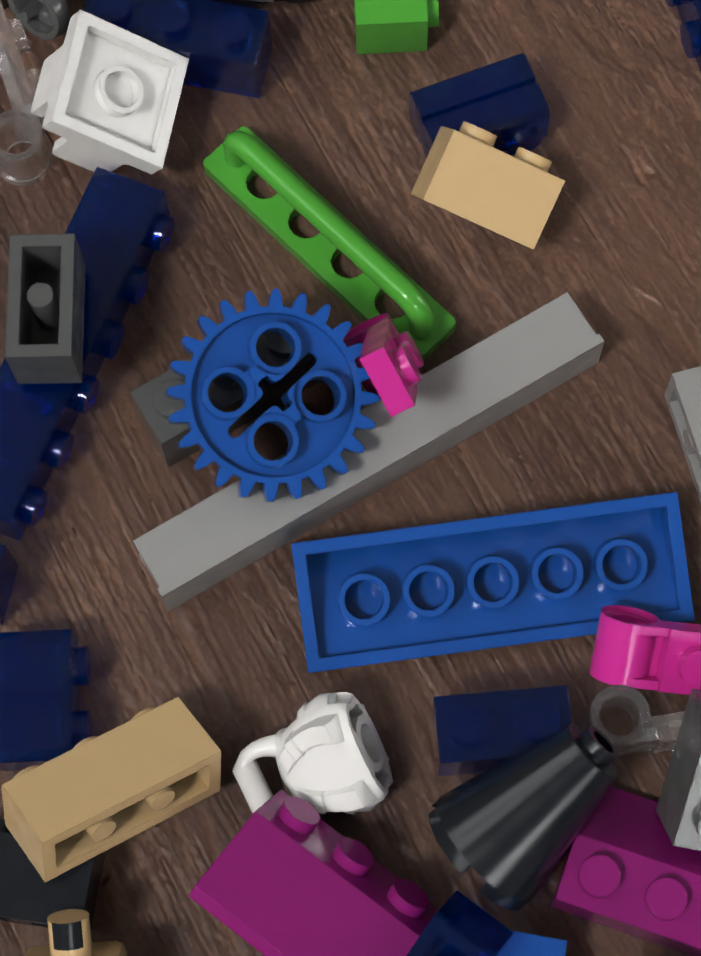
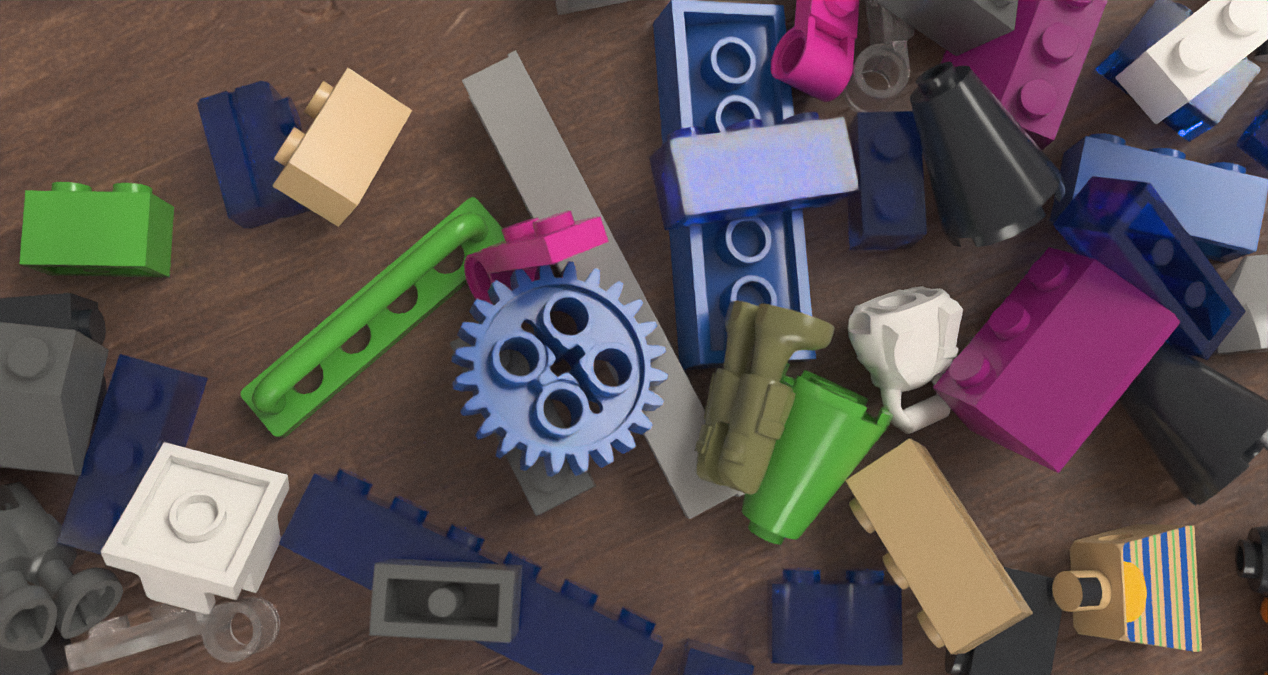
camera: 90 degrees left, 10 degrees up
(214, 659) = (813, 458): none -> bright green cone
(249, 577) = (746, 397): none -> olive piece
(496, 582) = (752, 170): none -> clear blue brick

